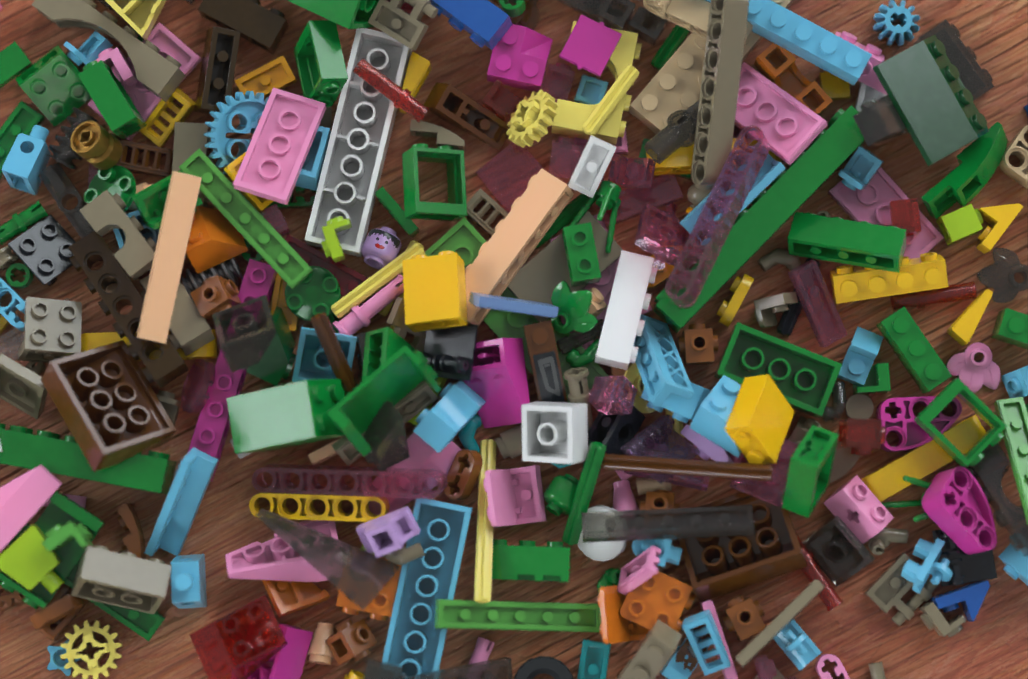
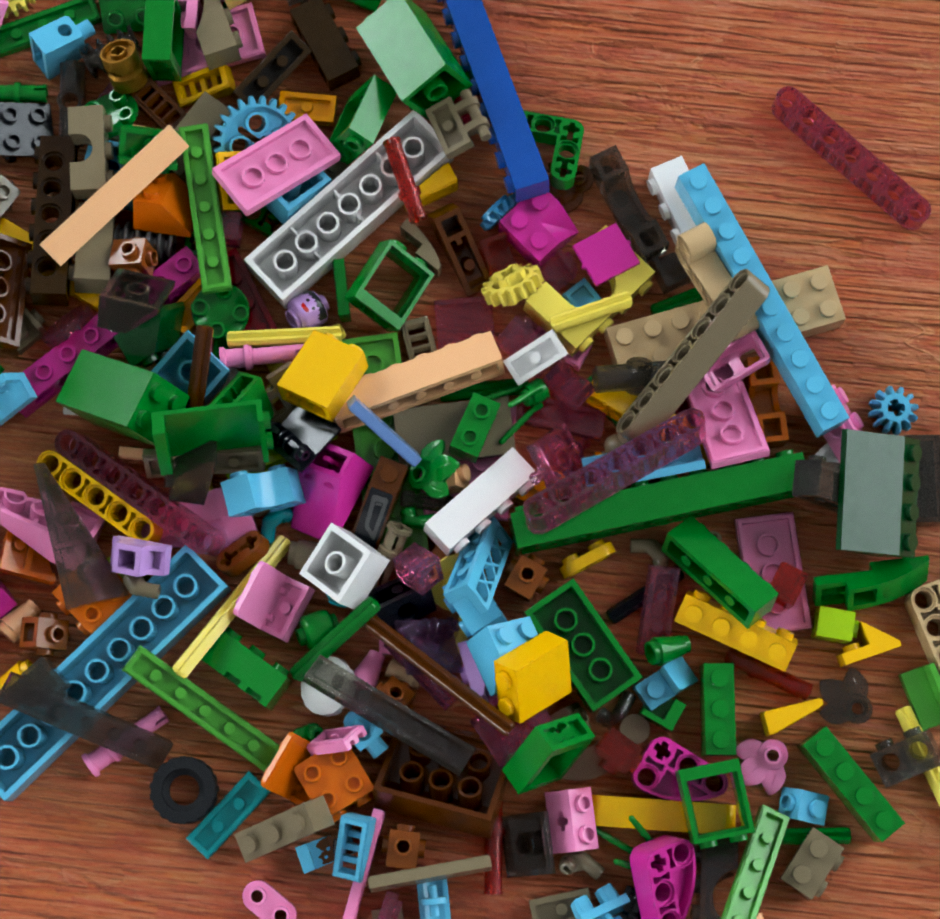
camera: 30 degrees right, 5 degrees down
(332, 245) = (263, 277): lime bracket -> none
(479, 66) = (497, 212): none -> dark azure gear
(752, 42) = (732, 357): none -> bright pink piece
(767, 307) = (614, 585): dark tan bracket -> none
(834, 87) = (800, 431): yellow tile -> none
(844, 329) = (665, 649): none -> green cone
(860, 169) = (774, 516): medium azure bracket -> none

